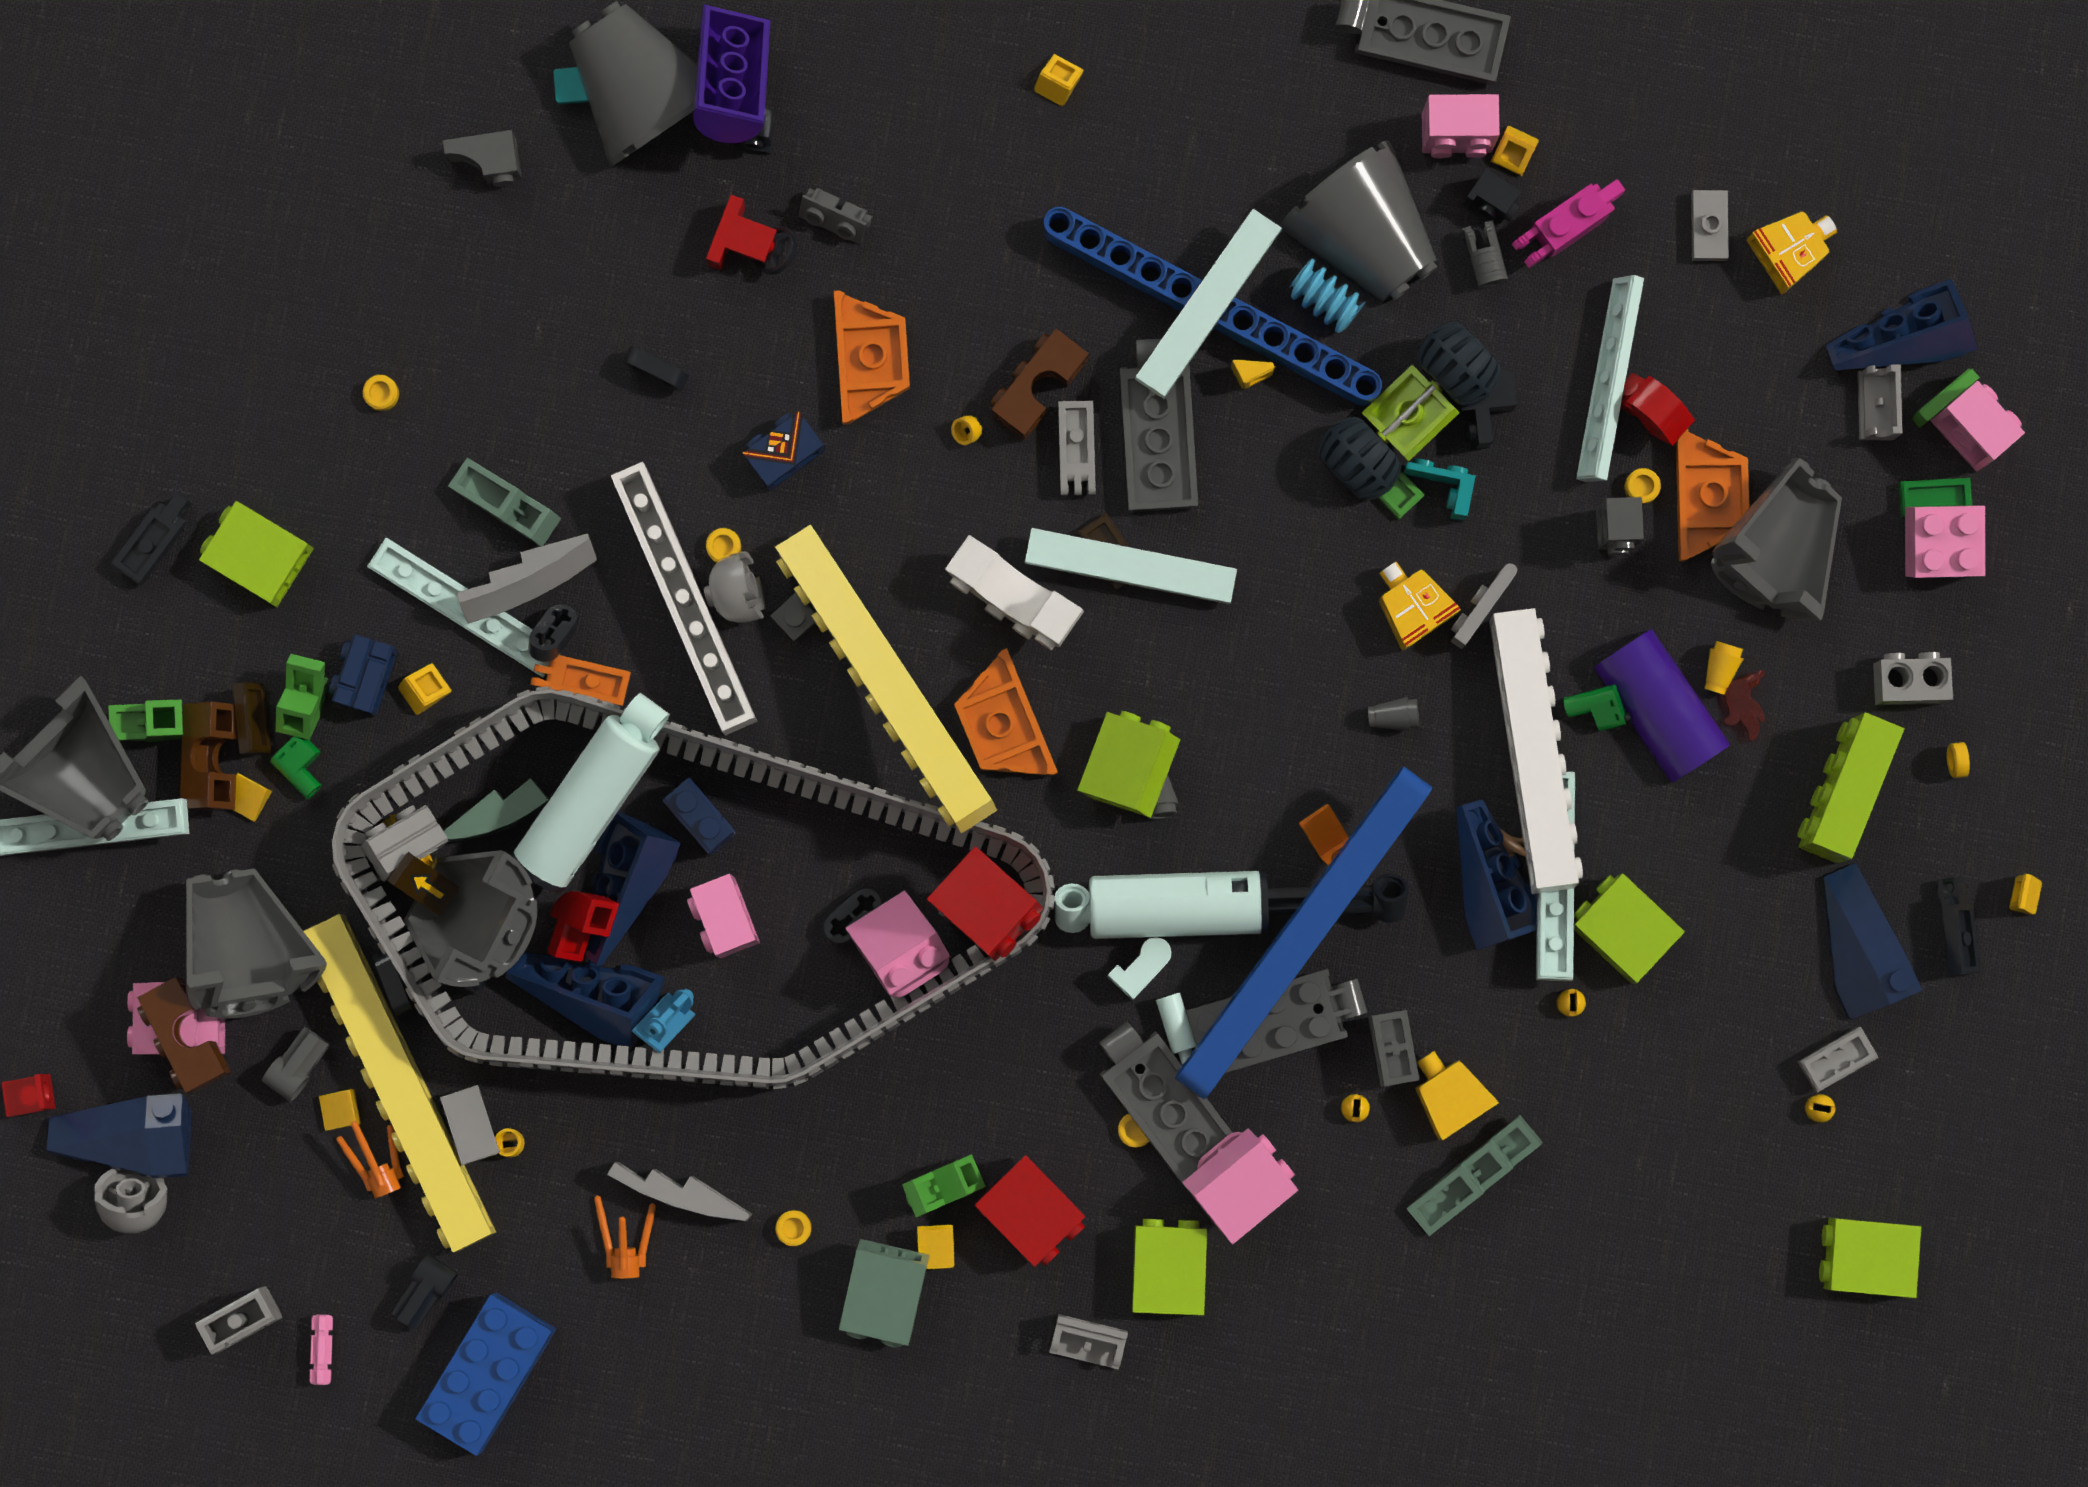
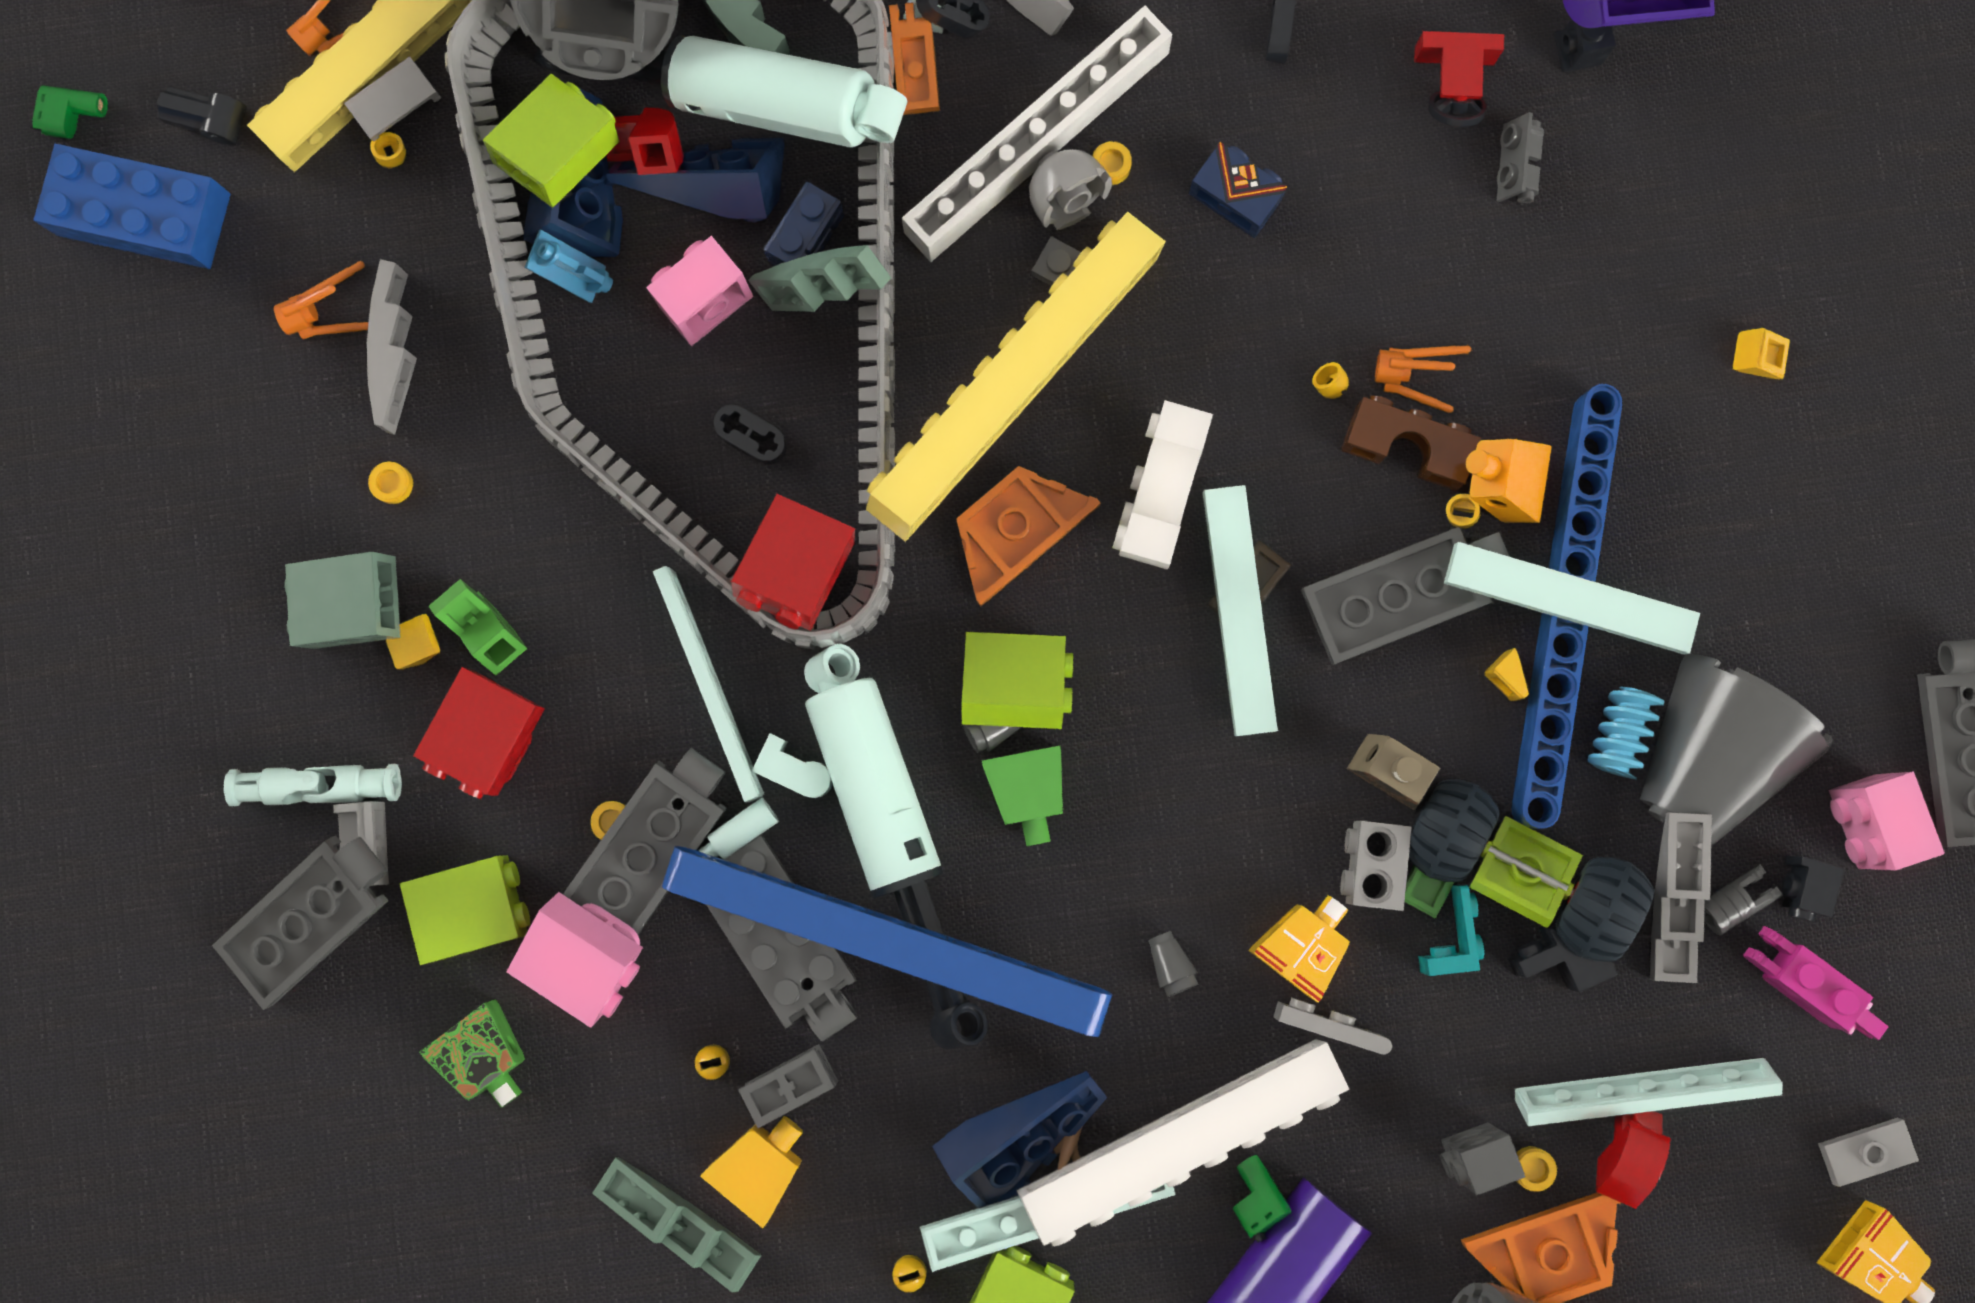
camera: 80 degrees right, 0 degrees up
(321, 1349) = (113, 30): bright pink axle -> none
(373, 1415) = (59, 108): none -> green piece
(562, 995) = (552, 139): none -> lime brick
(750, 818) = (819, 277): none -> sand green slope
(869, 356) = (1376, 248): orange wing -> none
(899, 945) = (725, 490): bright pink brick -> none
(973, 375) = (1397, 364): none -> orange plant
(1021, 1384) = (290, 786): none -> light aqua piece
(1050, 1013) = (708, 684): none -> light aqua tile
(1076, 445) = (1355, 507): light grey hinge -> none
(1095, 316) = (1509, 478): none -> light orange torso
(1101, 358) = (1462, 503): none -> yellow hinge
(1136, 1400) = (303, 919): none -> dark grey hinge
(1219, 783) = (1028, 790): none -> bright green torso
(1290, 1293) = (478, 1055): none -> torso
(1296, 488) = (1393, 769): none -> dark tan torso
(1324, 833) = (1009, 928): orange bracket -> none
(1372, 518) = (1389, 866): none -> light grey brick
(1469, 300) = (1680, 896): none -> light grey slope
(1515, 150) = (1871, 895): yellow slope -> none

